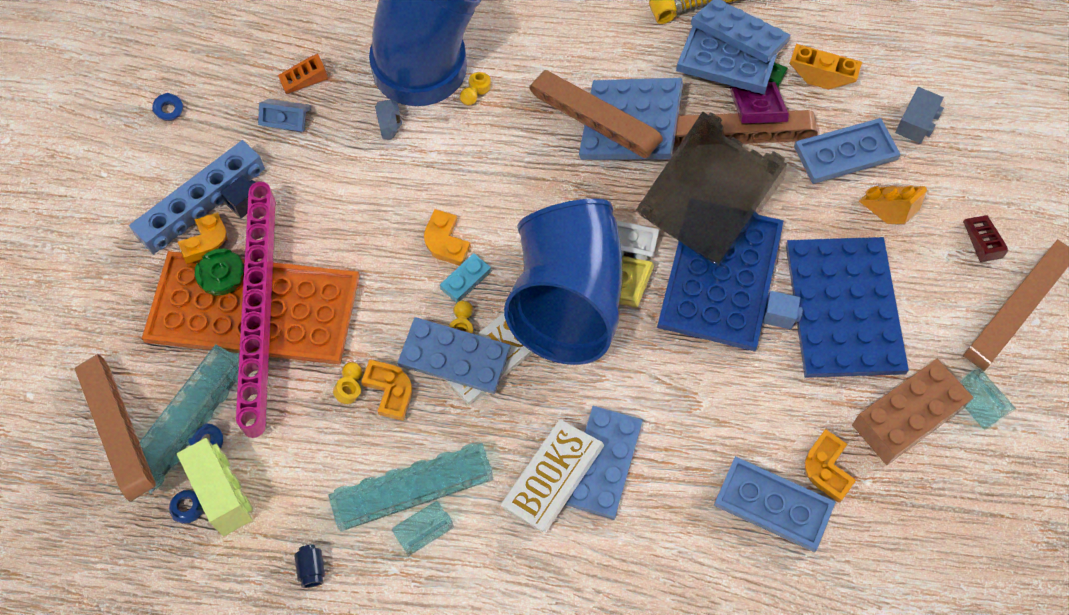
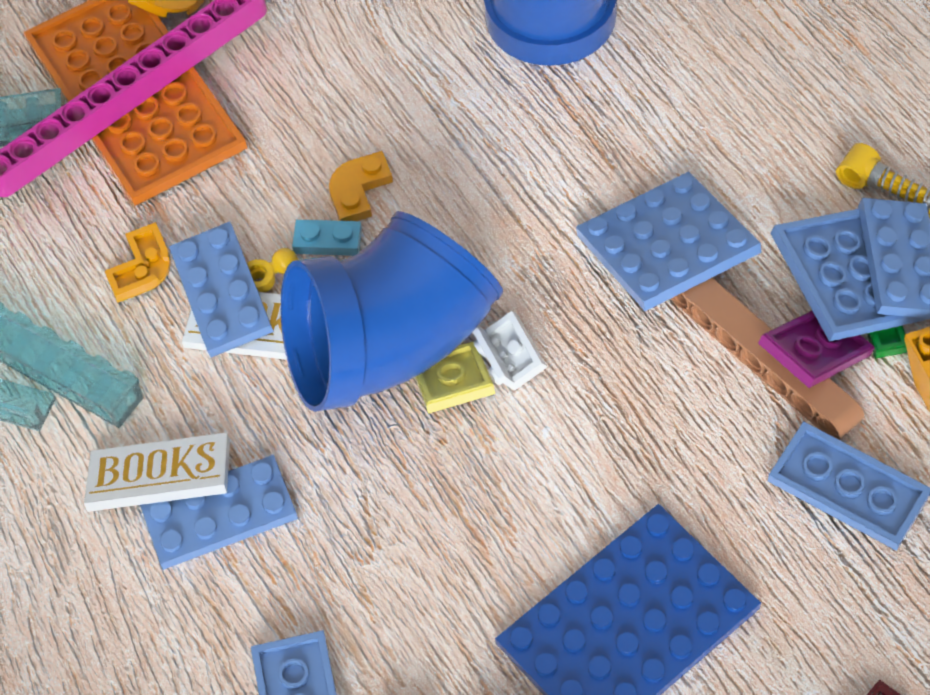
camera: 55 degrees right, 5 degrees down
(219, 272) = (139, 29): green tile -> none
(348, 384) = (131, 220): yellow plate -> none
(388, 118) = (450, 32): sand blue rock -> none
(479, 84) = (578, 77): yellow plate -> none
(596, 114) = (630, 200): nougat beam -> none
(711, 190) = (635, 371): clear smoke windscreen -> none
(727, 300) = (550, 467): blue plate -> none
(782, 310) = (553, 556): medium blue brick -> none
(894, 203) = (814, 579): light orange slope -> none

